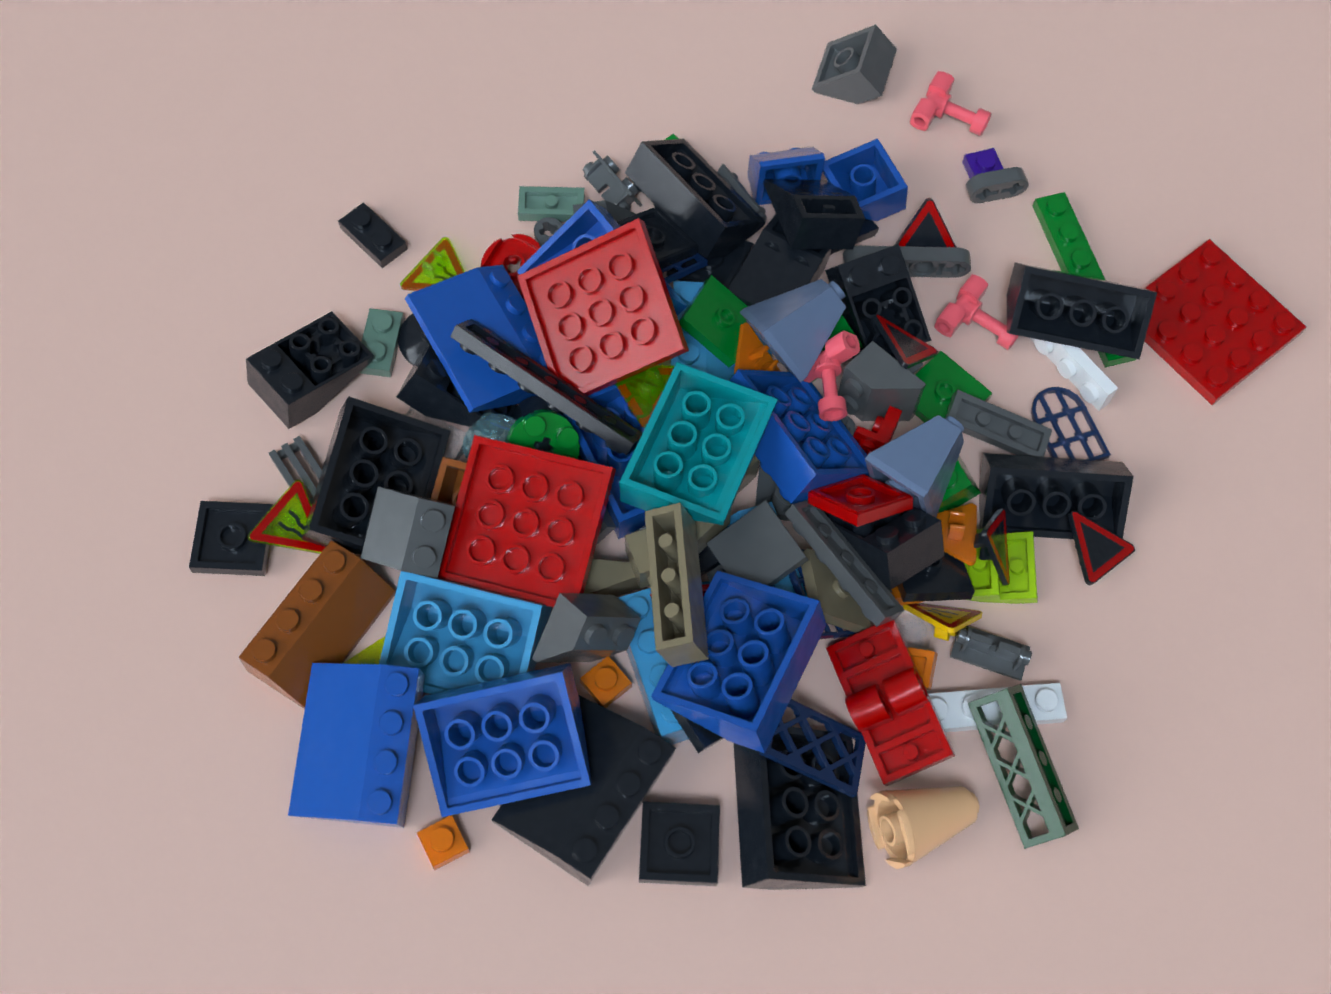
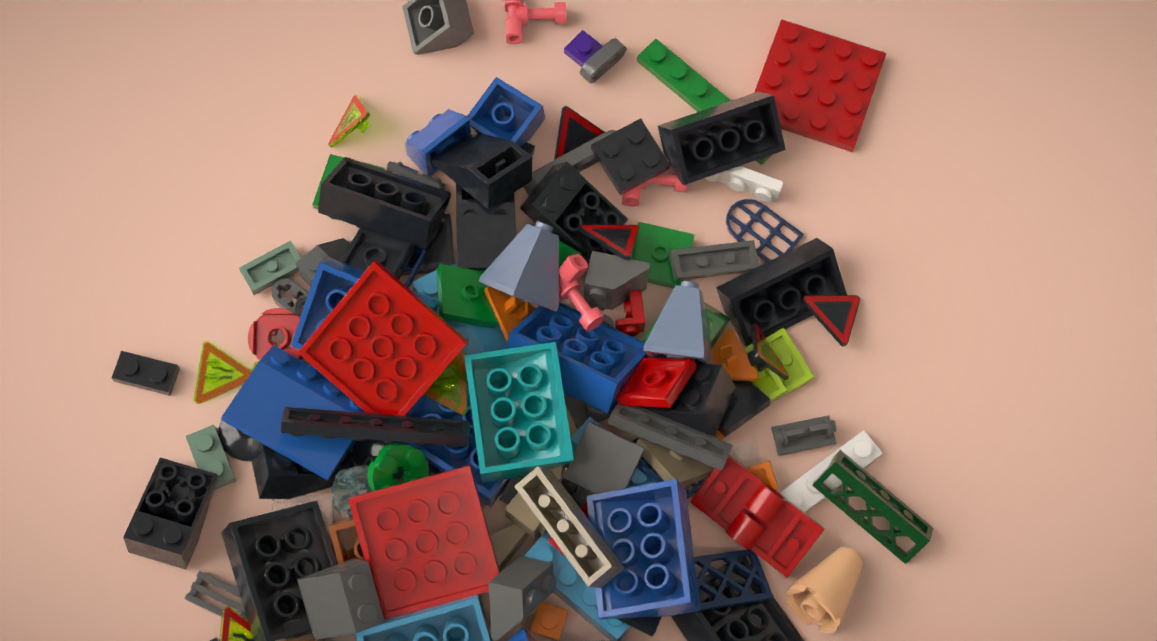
camera: 30 degrees left, 5 degrees up
(603, 174) = (297, 219): dark grey hinge -> none
(715, 113) = (354, 117): none -> clear neon green piece
(945, 619) = (760, 430): yellow piece -> none
(969, 281) = (630, 156): none -> black plate

